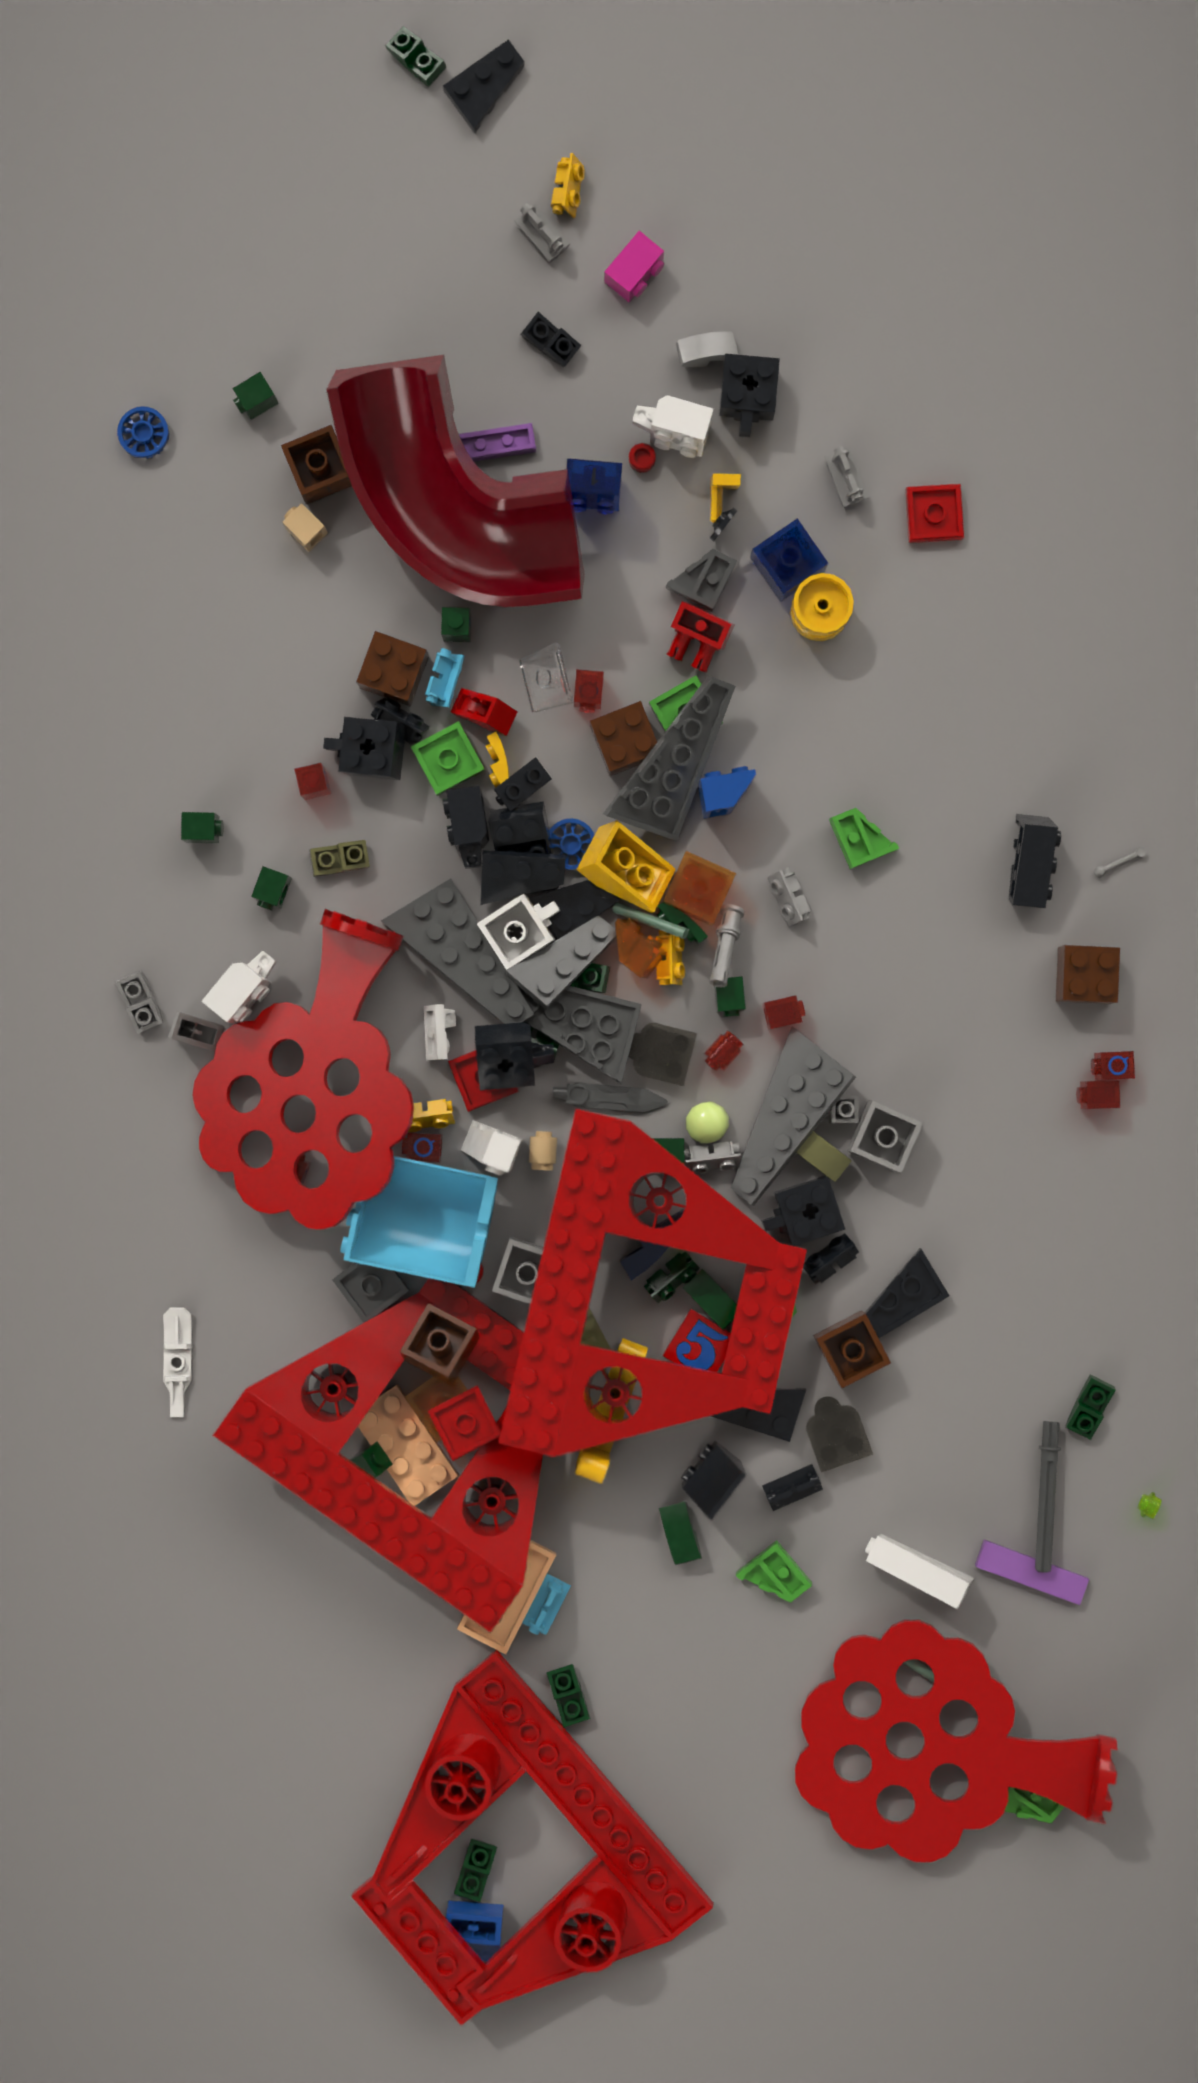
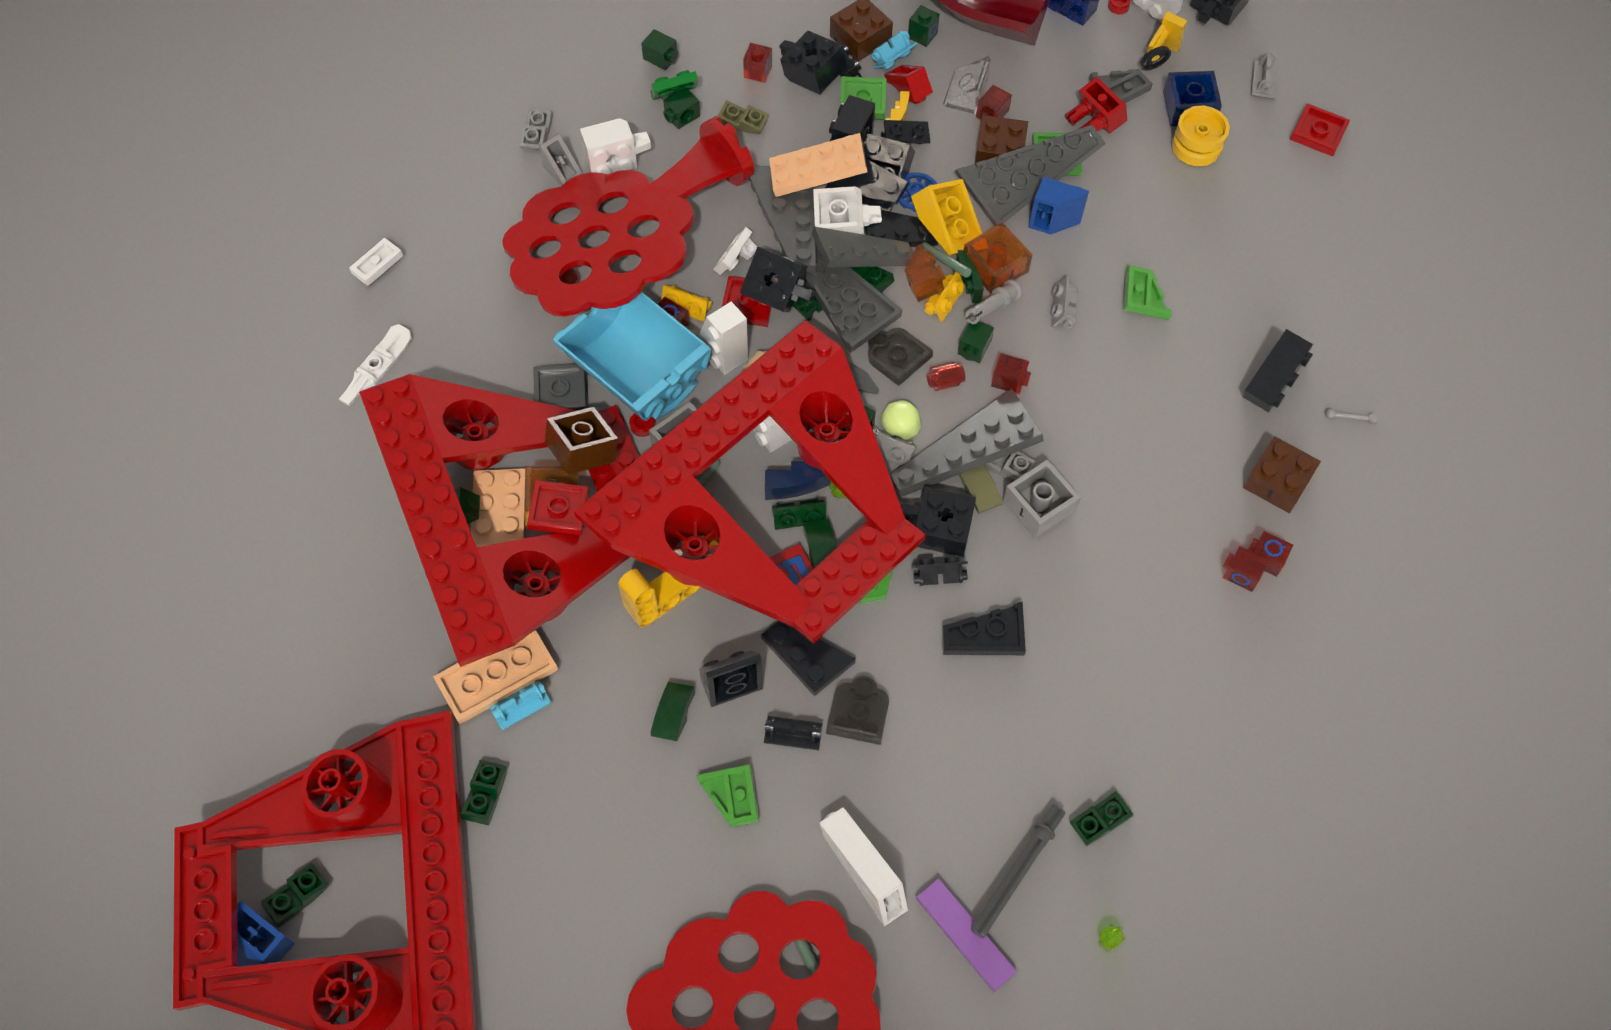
camera: 30 degrees right, 25 degrees down
(95, 1255) = (376, 261): none -> white plate
(248, 868) = (664, 87): none -> green plate
(464, 892) = (818, 165): none -> light nougat plate
(852, 1349) = (915, 643): reddish brown brick -> none

